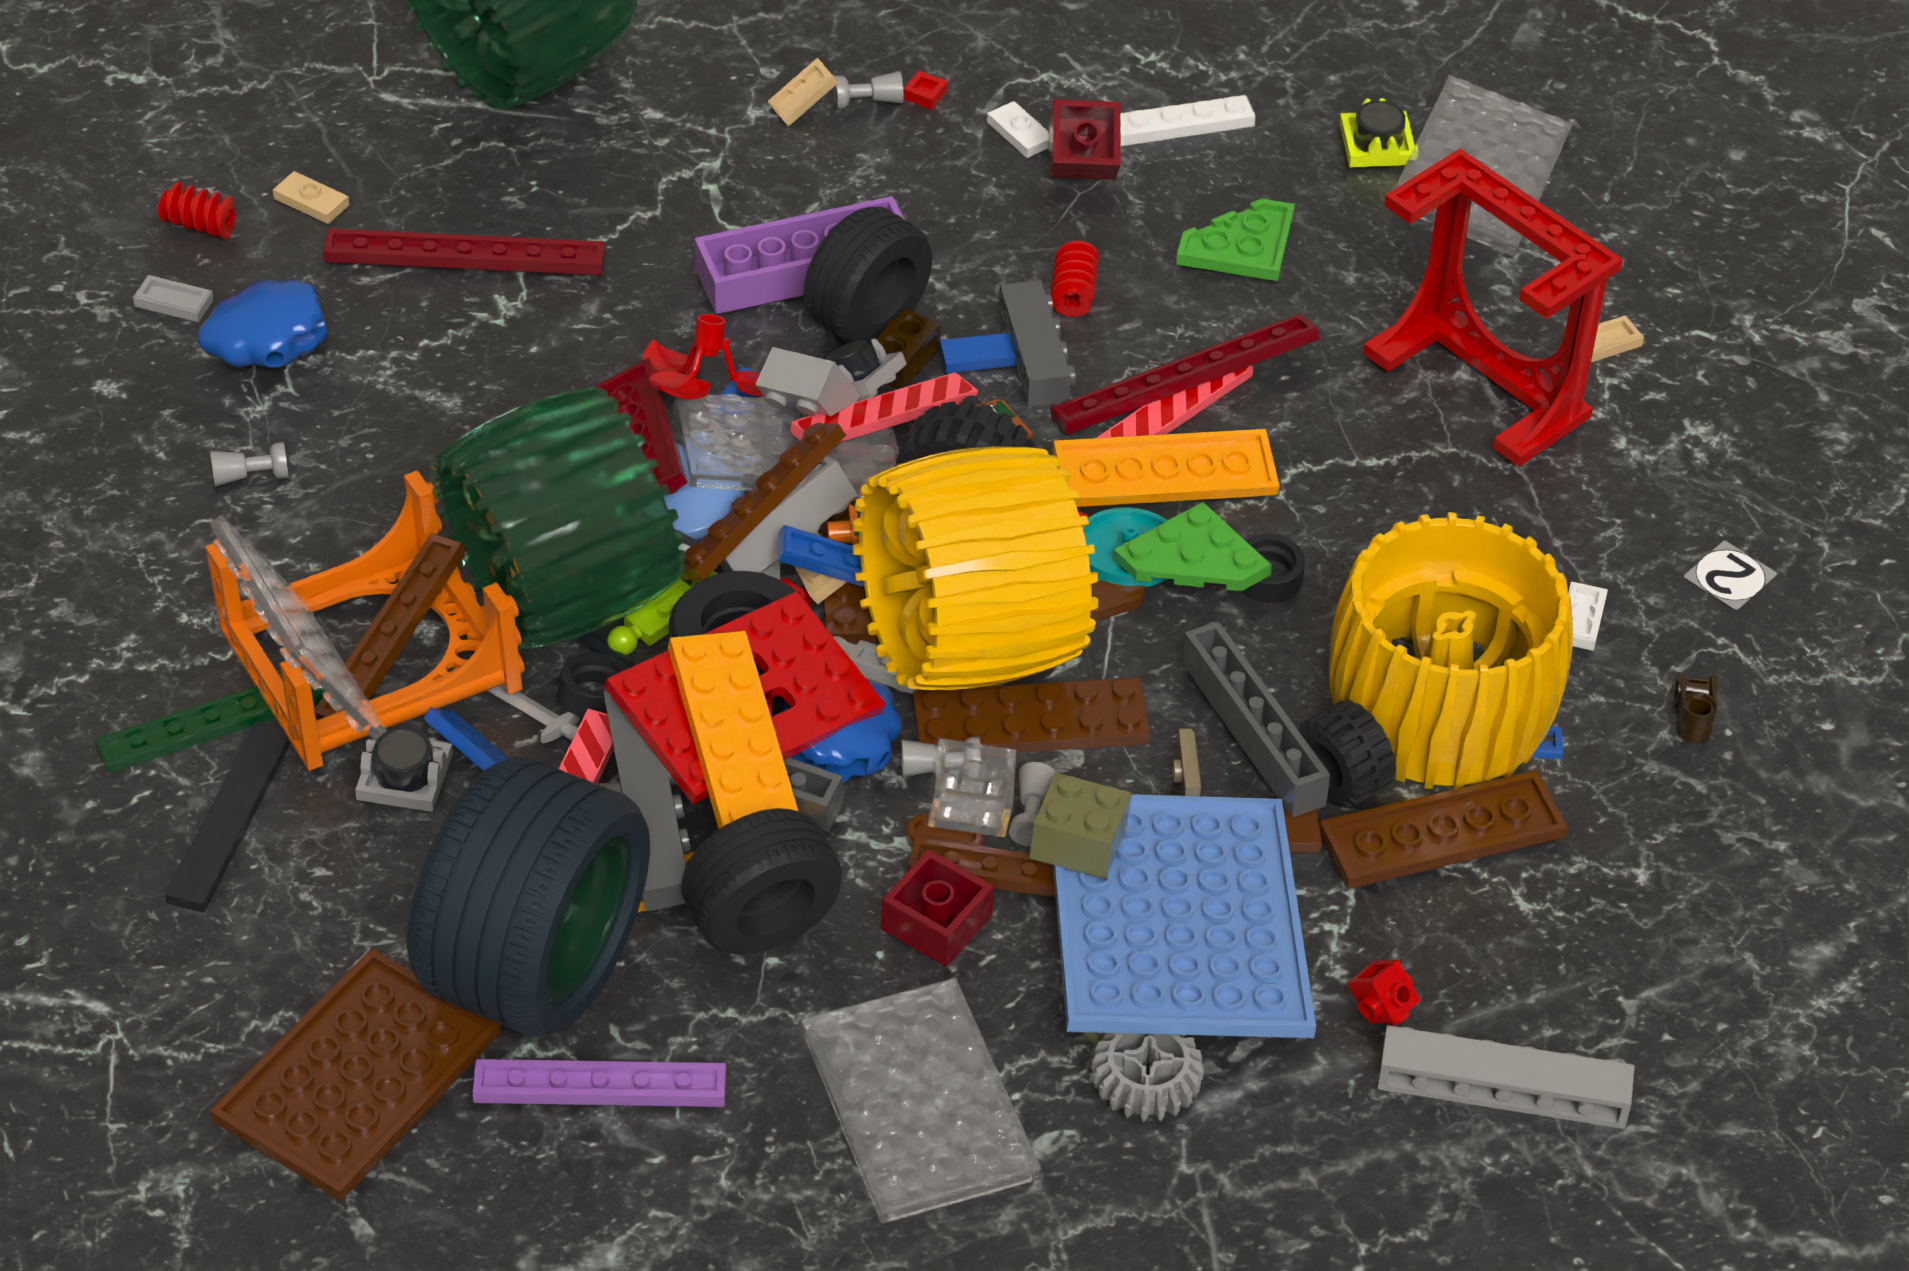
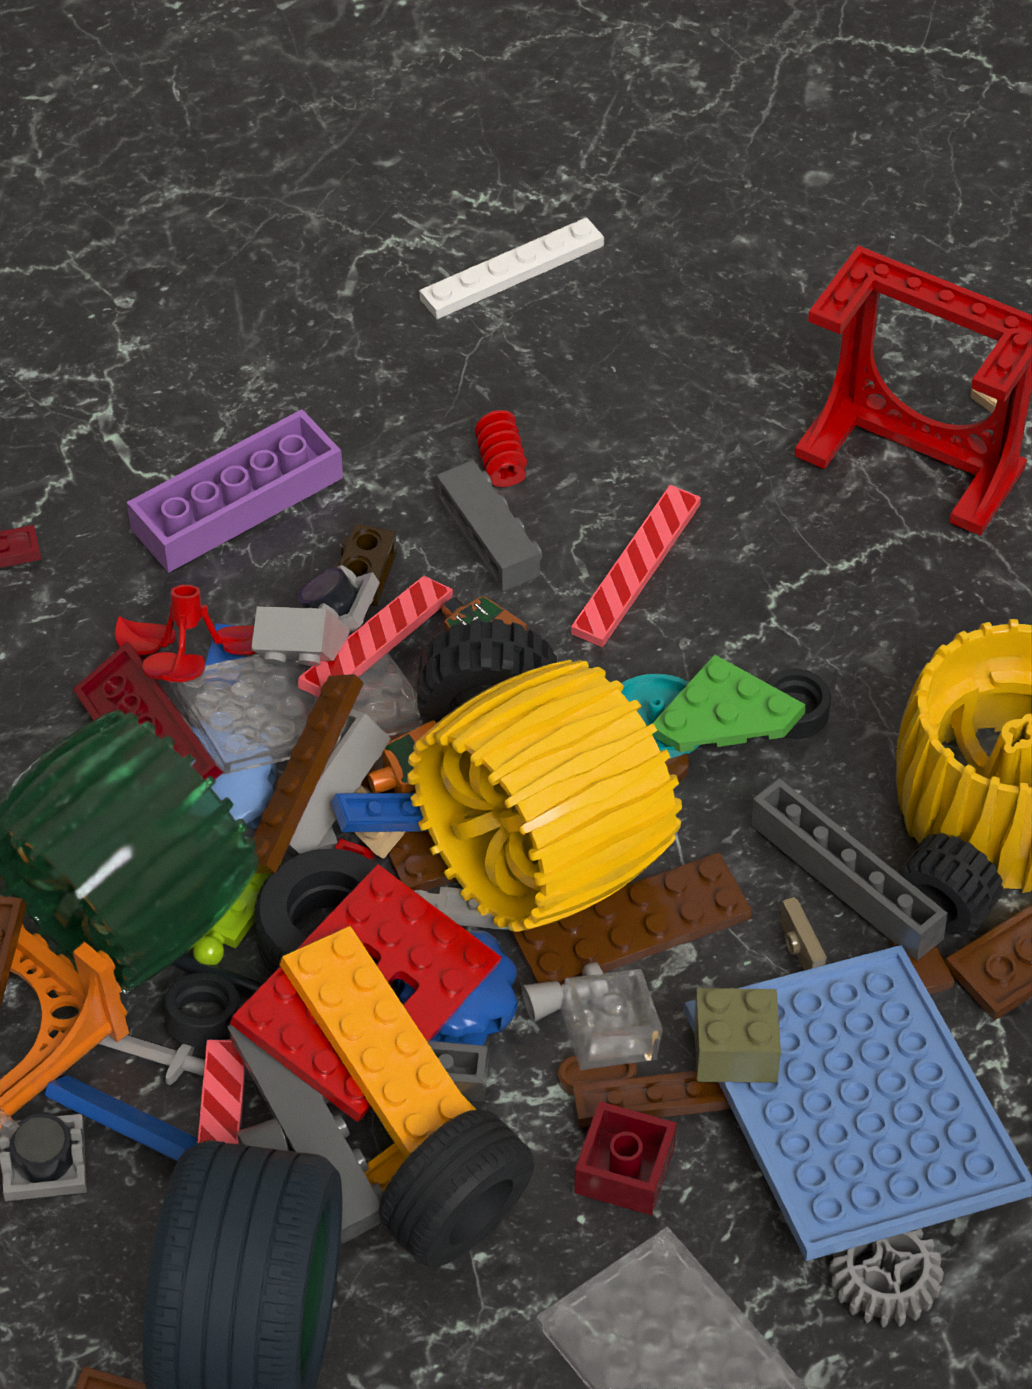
camera: 15 degrees left, 5 degrees up
(803, 92) = (169, 317): tan plate -> none
(867, 273) = (313, 501): black tyre -> none
(881, 89) = (242, 294): light grey piece -> none
(925, 90) = (282, 285): red tile -> none
(977, 352) = (435, 548): blue tile -> none
(1019, 129) = (388, 304): white plate -> none
(1033, 787) = (668, 1001): light grey piece -> none
(1084, 139) = (459, 302): dark red brick -> none
(1169, 467) = (665, 623): light orange plate -> none
(1184, 373) = (640, 522): dark red tile -> none
(1241, 242) = (641, 369): bright green plate -> none
(1377, 135) = (724, 230): piece -> none
(1500, 134) = (816, 222): clear plate -> none

